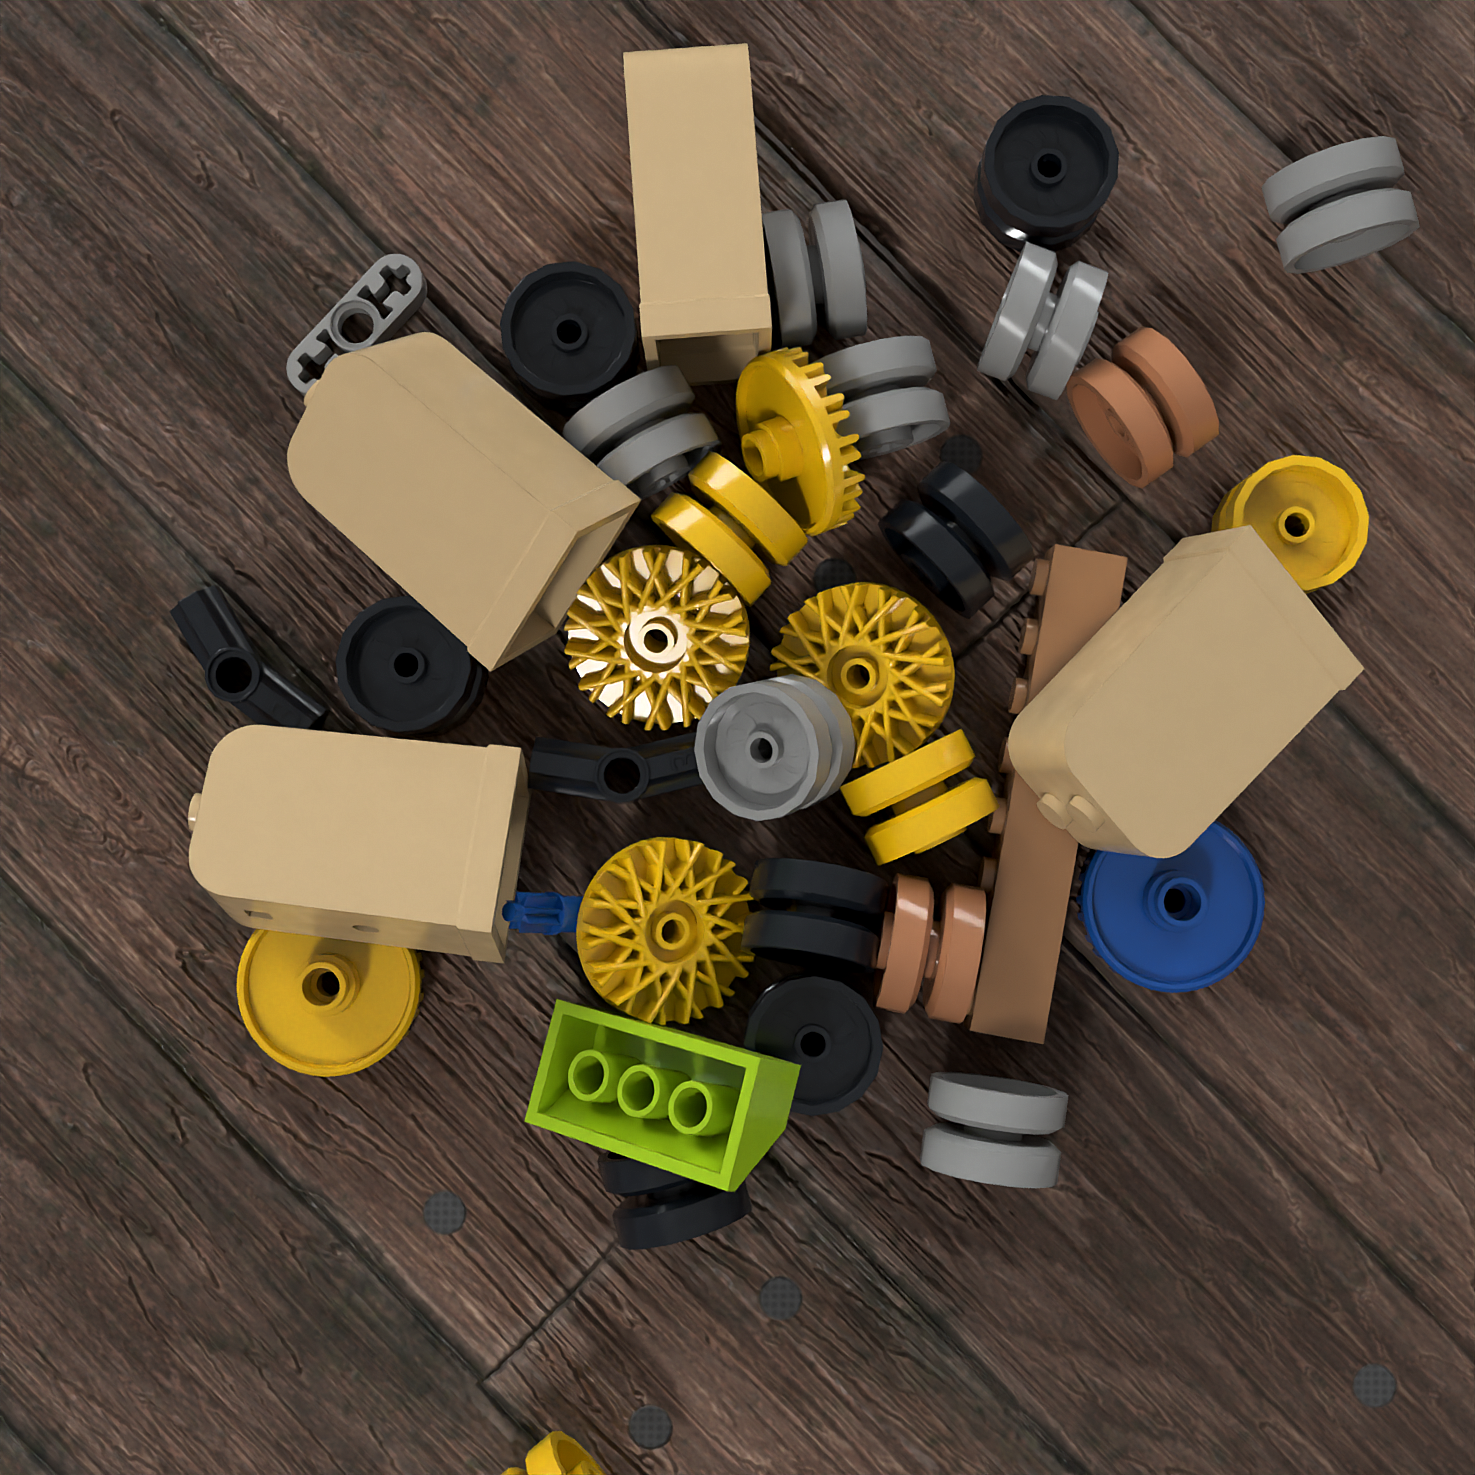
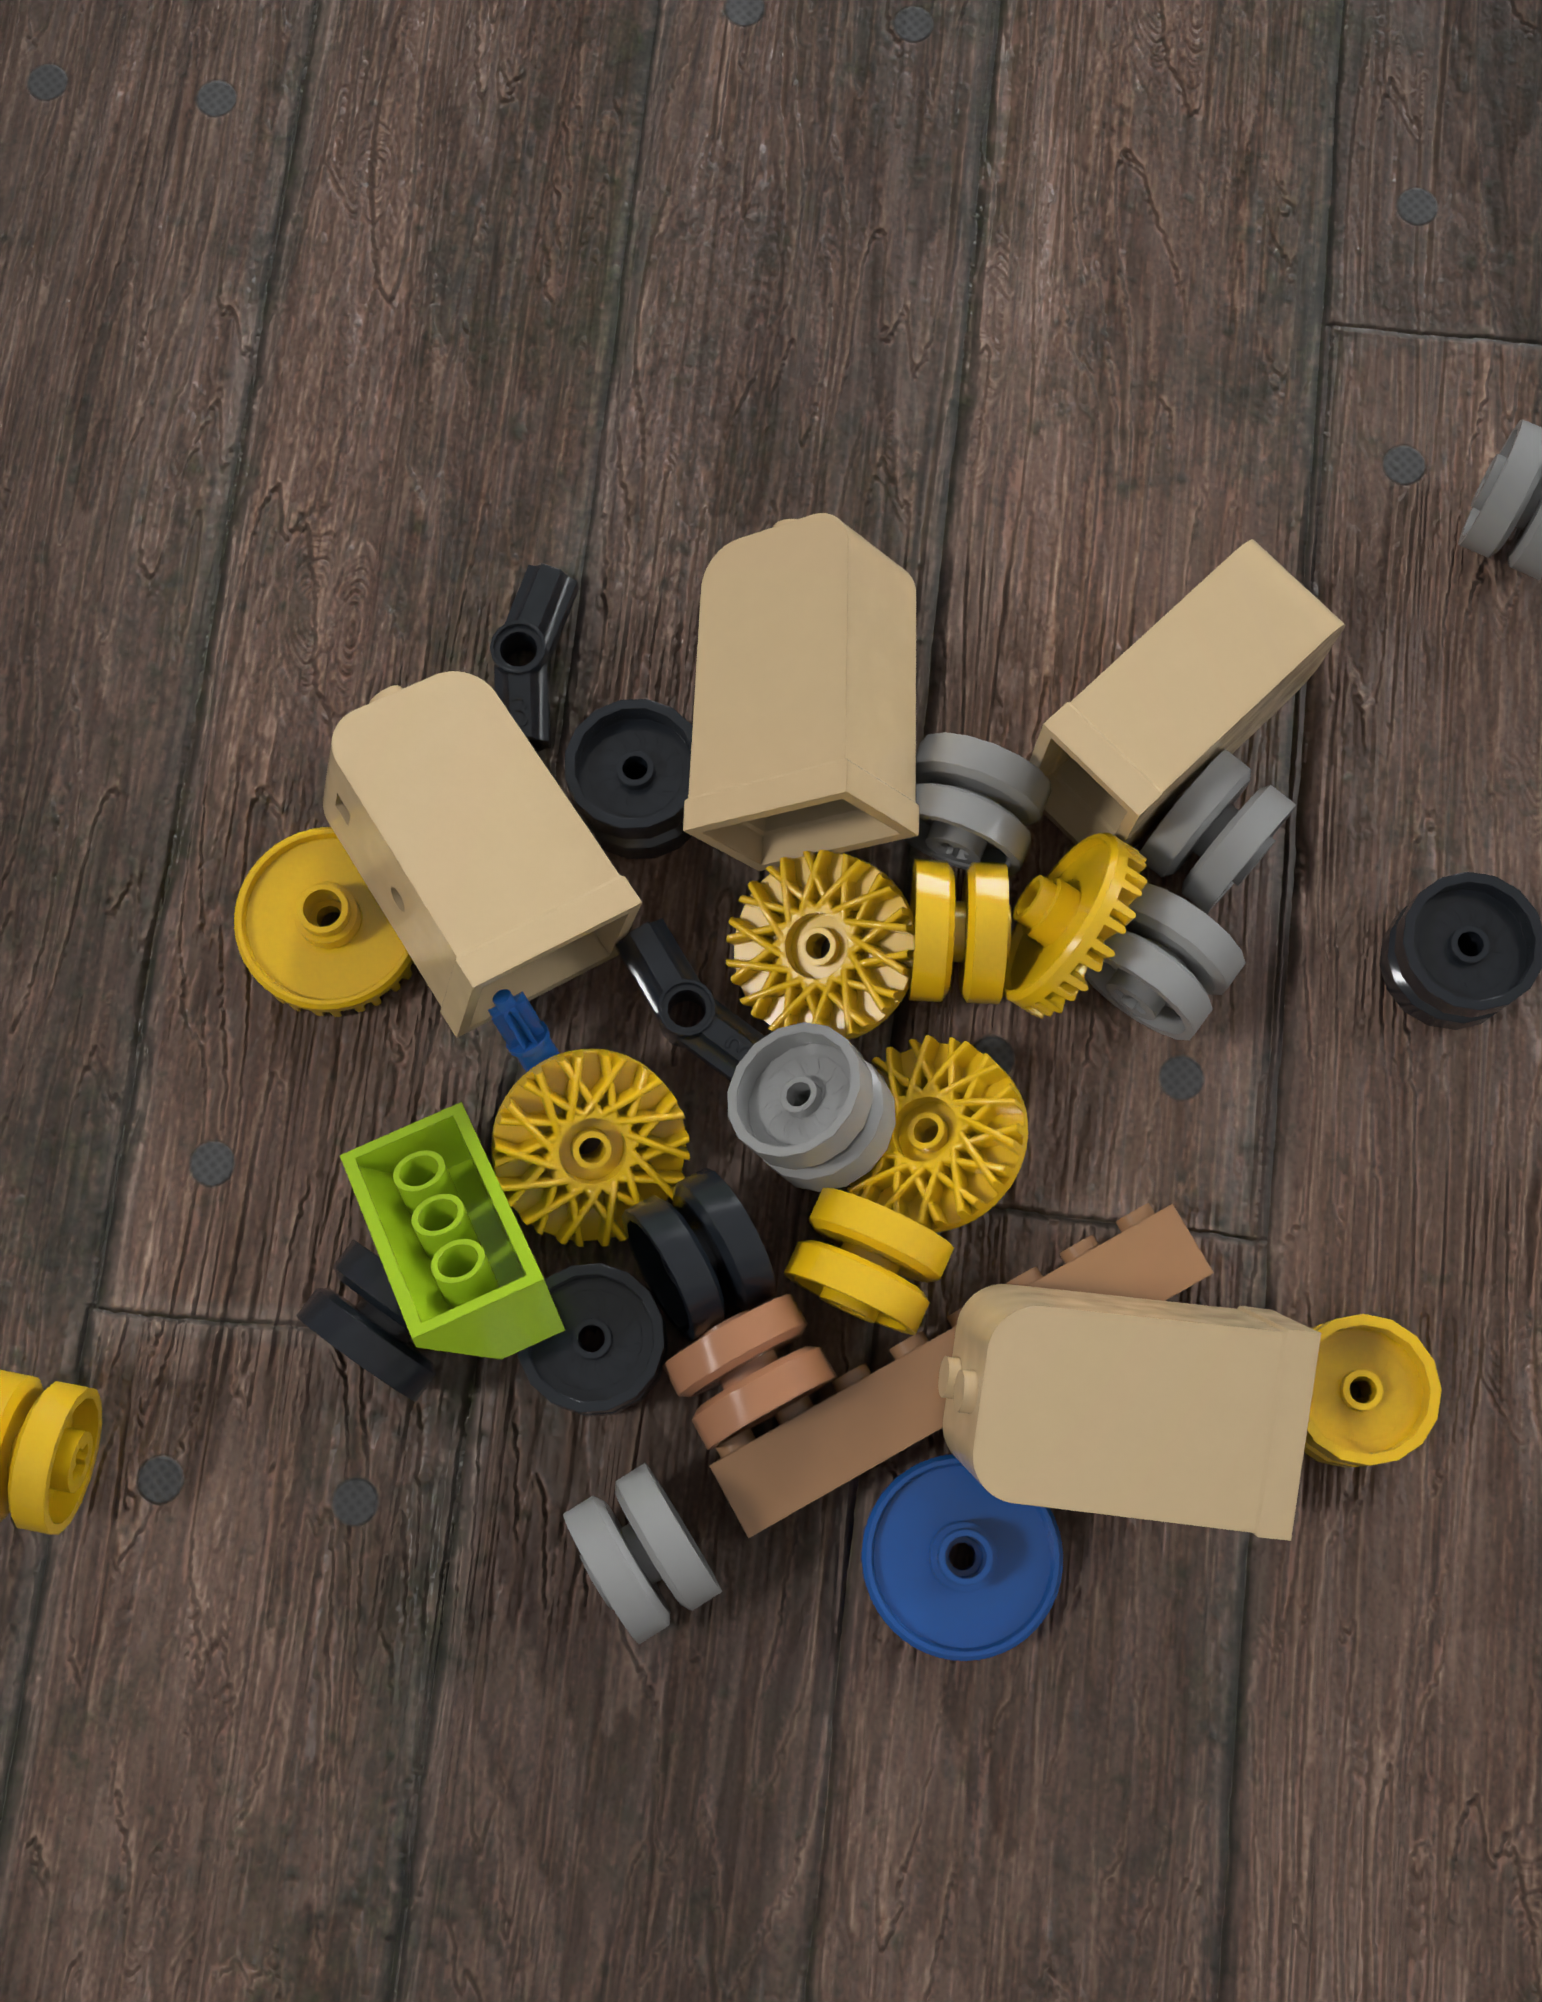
camera: 50 degrees right, 10 degrees down
(354, 301) = (890, 513): light grey beam -> none
(563, 303) = (1002, 680): black wheel -> none
(956, 538) = (1111, 1120): black wheel -> none
(1045, 322) = (1339, 1033): light grey wheel -> none
(1143, 406) = (1346, 1182): nougat wheel -> none

